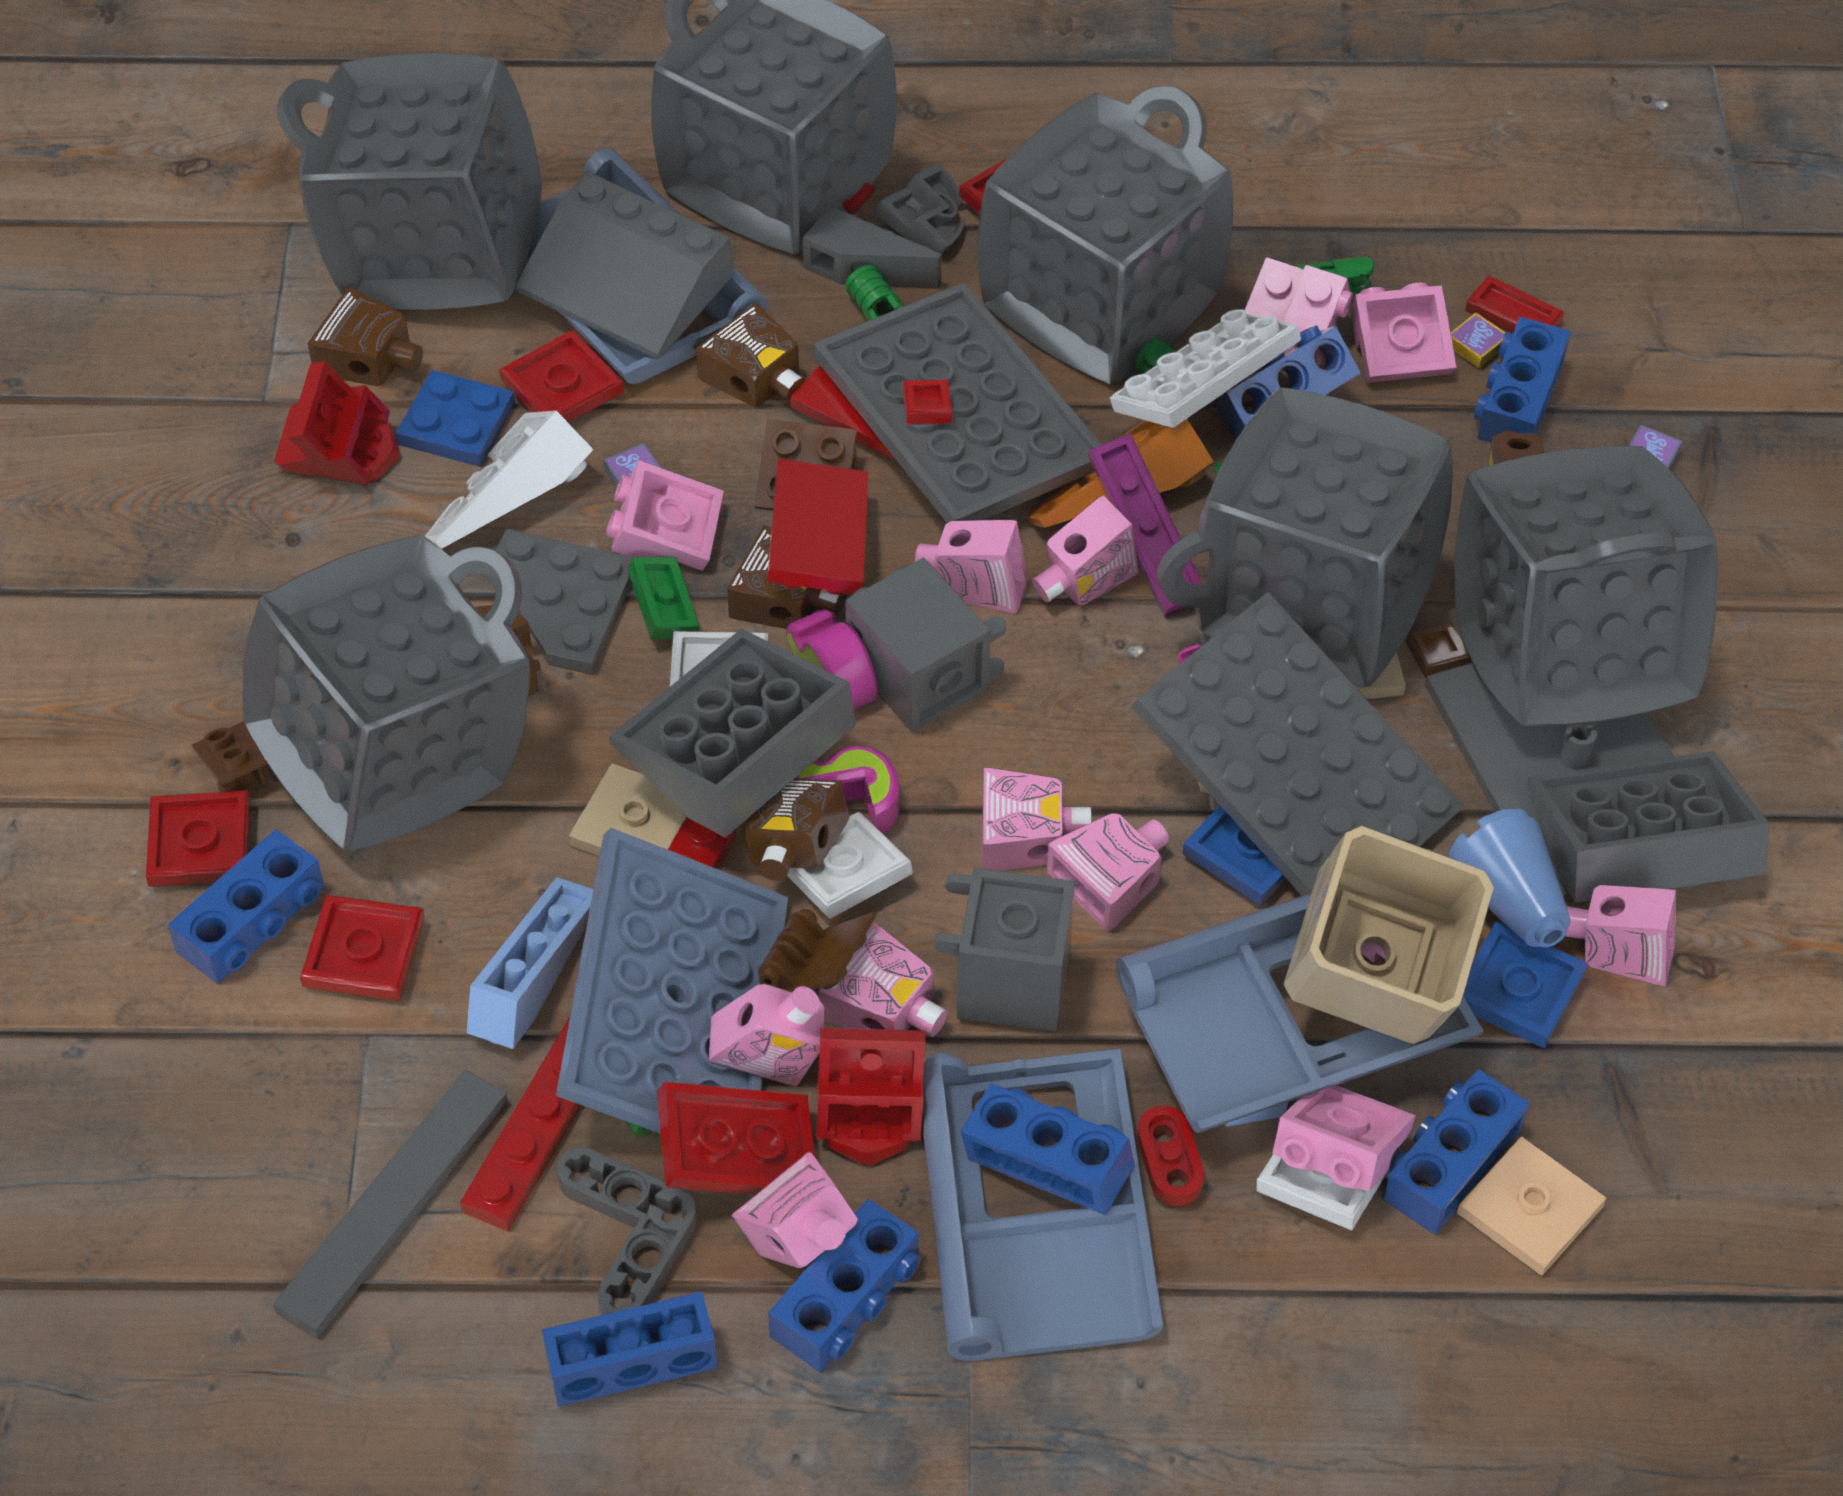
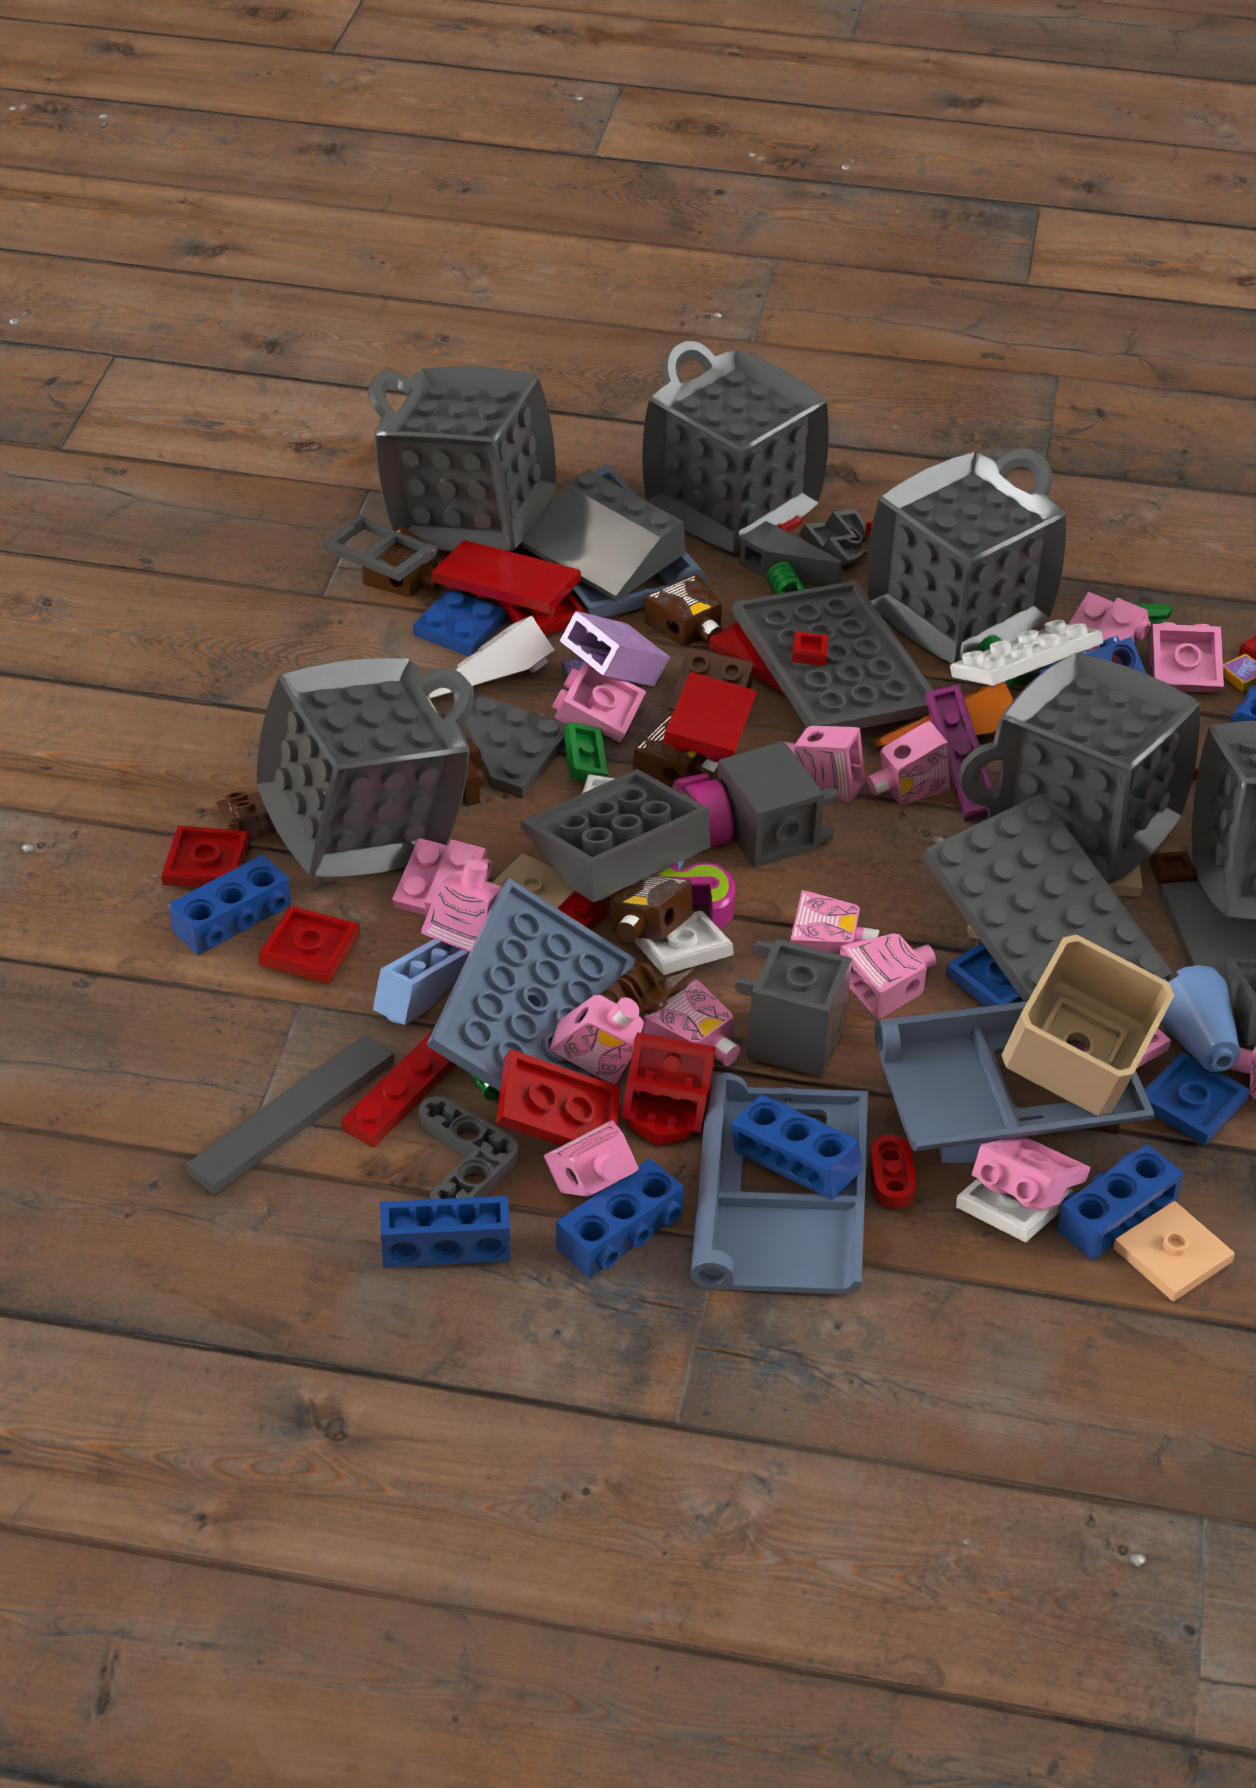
camera: 10 degrees right, 10 degrees down
(315, 347) = (424, 553): none -> dark grey window
(337, 431) = (370, 614): red piece -> none
(506, 345) = (506, 576): none -> red tile
(517, 824) = (429, 867): none -> bright pink plate
(557, 873) = (461, 906): none -> bright pink torso
(672, 438) = (614, 649): none -> lavender brick

